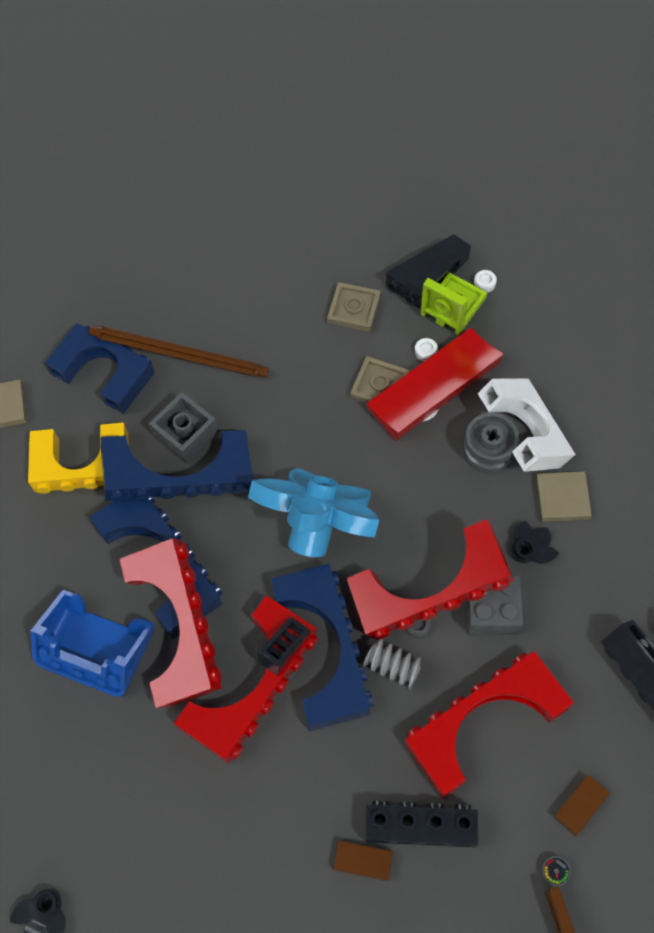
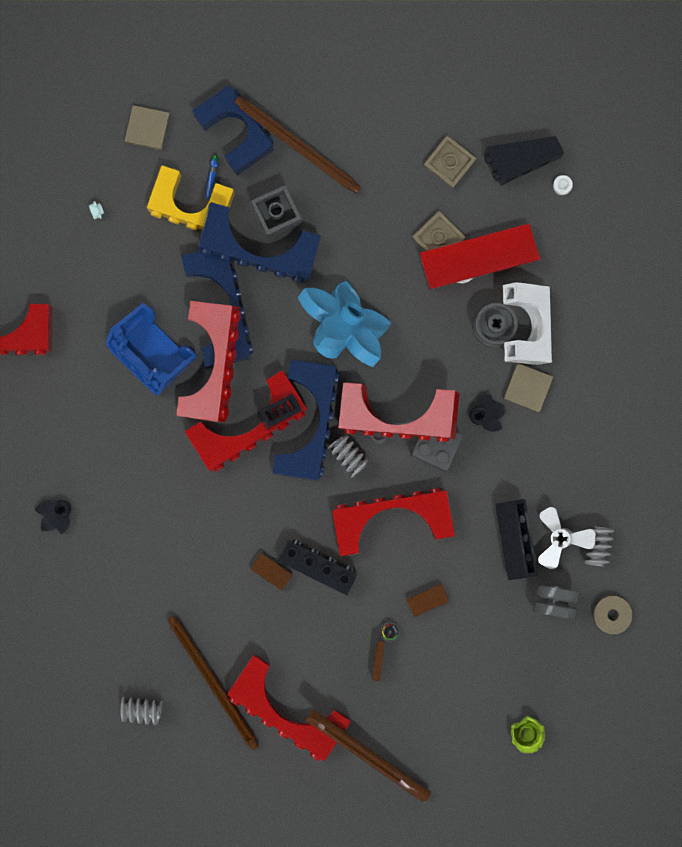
camera: 20 degrees right, 20 degrees up
(94, 423) = (212, 176): none -> blue piece
(425, 348) = (487, 224): white tile -> none
(451, 301) = (516, 198): lime bracket -> none

